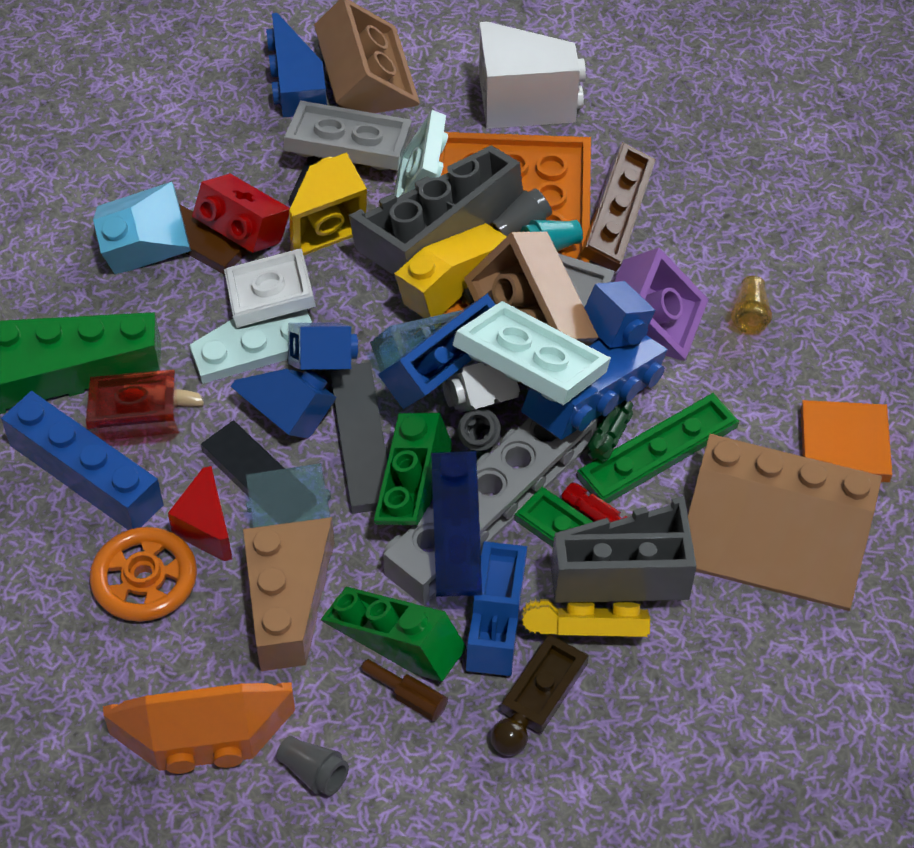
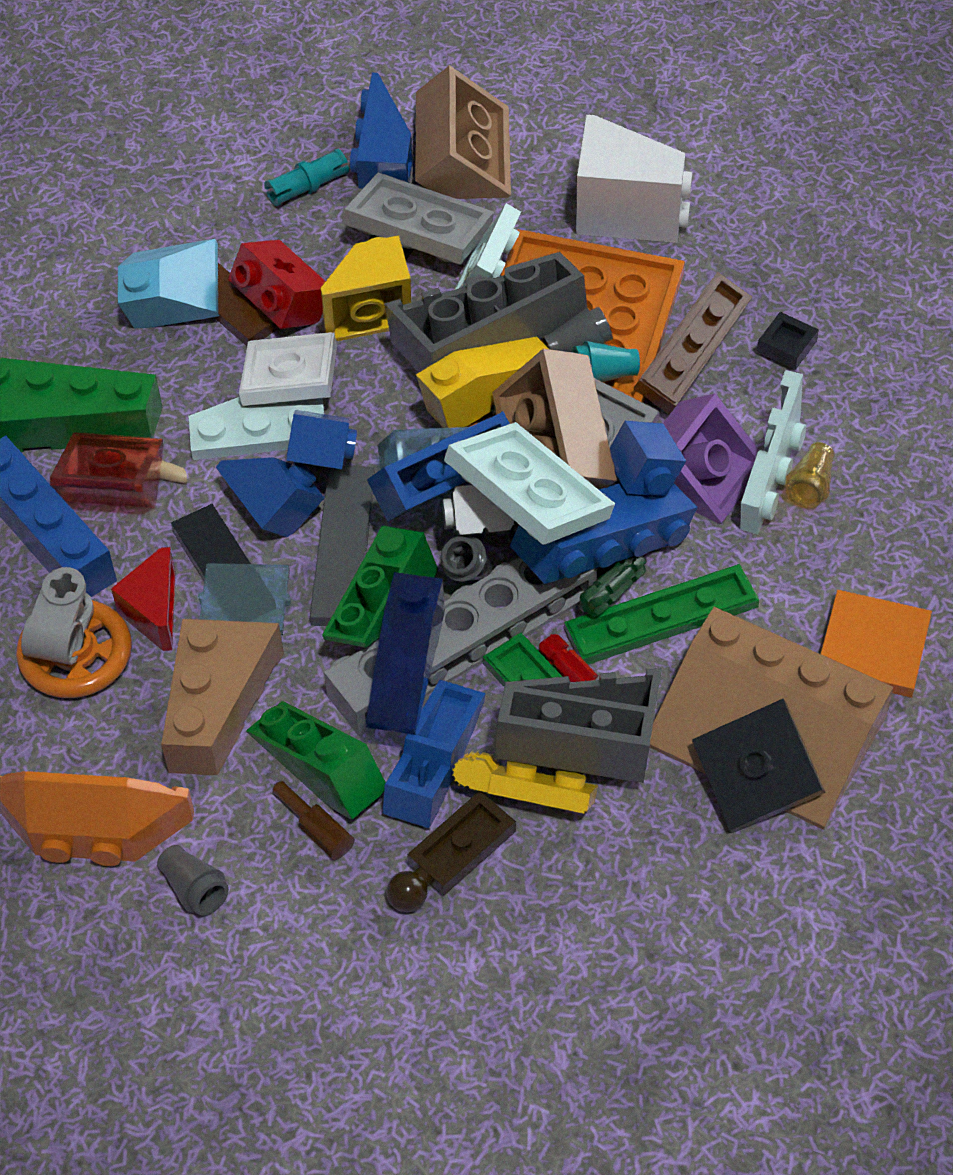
camera: 15 degrees right, 0 degrees up
(127, 548) = (58, 618): none -> light grey piece
(235, 114) = (306, 177): none -> teal pin
(697, 192) = (787, 340): none -> black plate
(719, 302) = (773, 464): none -> light aqua wing
(784, 566) = (758, 766): none -> black plate

